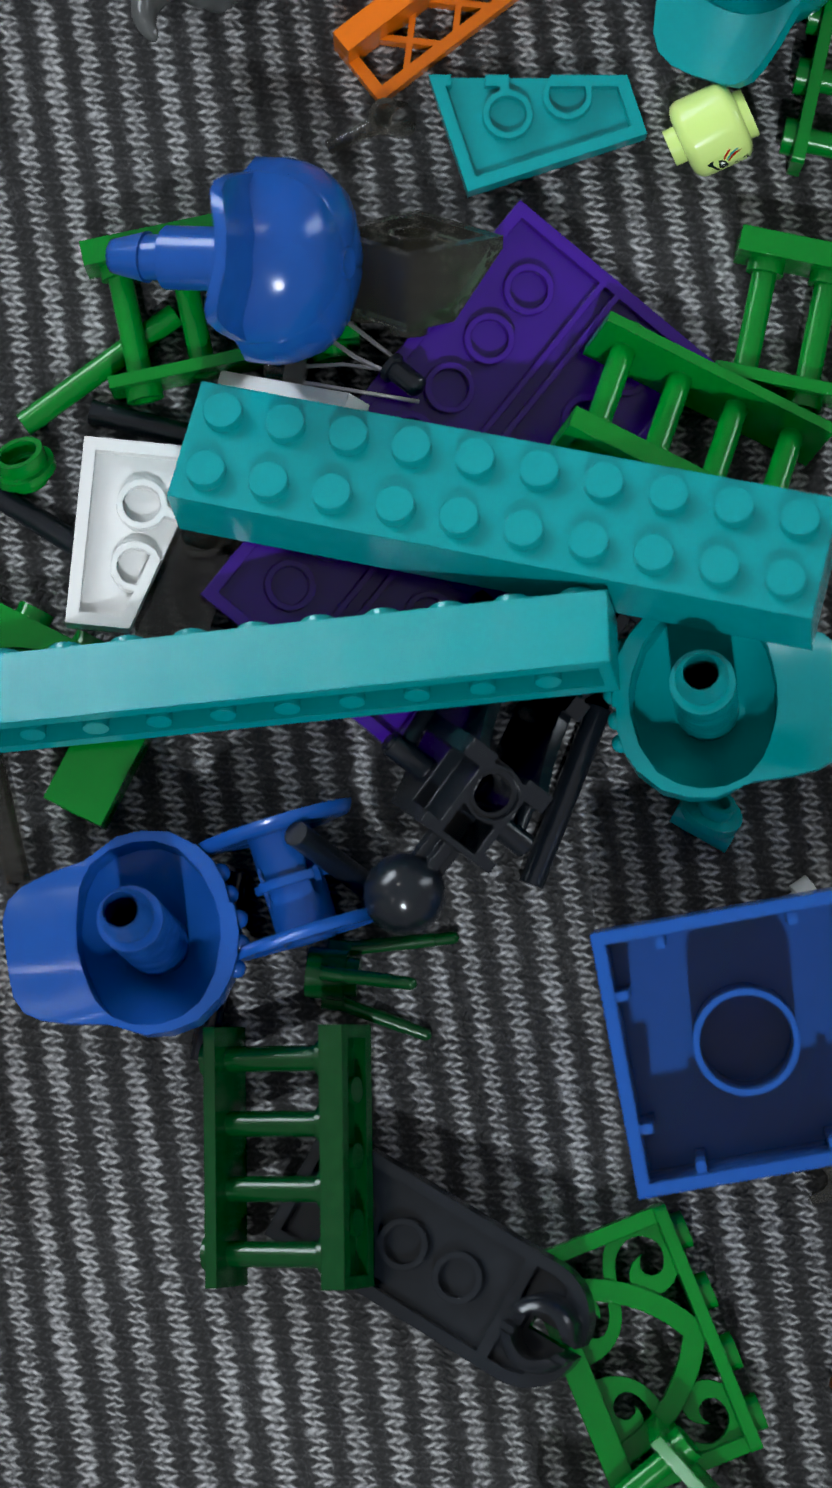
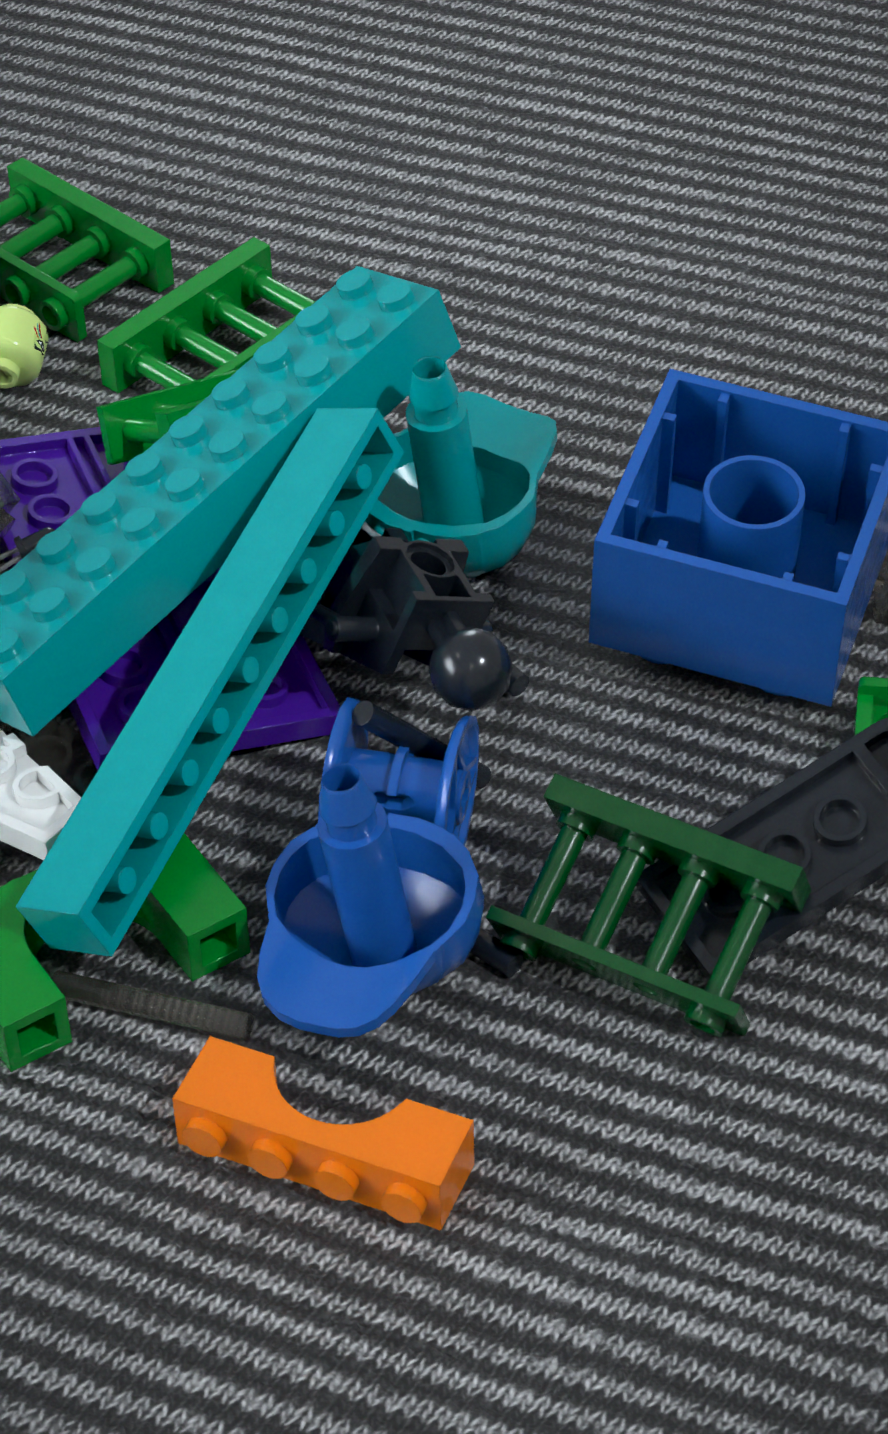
camera: 60 degrees left, 40 degrees down
(335, 974) = (506, 824): dark green plant -> none
(710, 821) = (546, 558): teal plate -> none

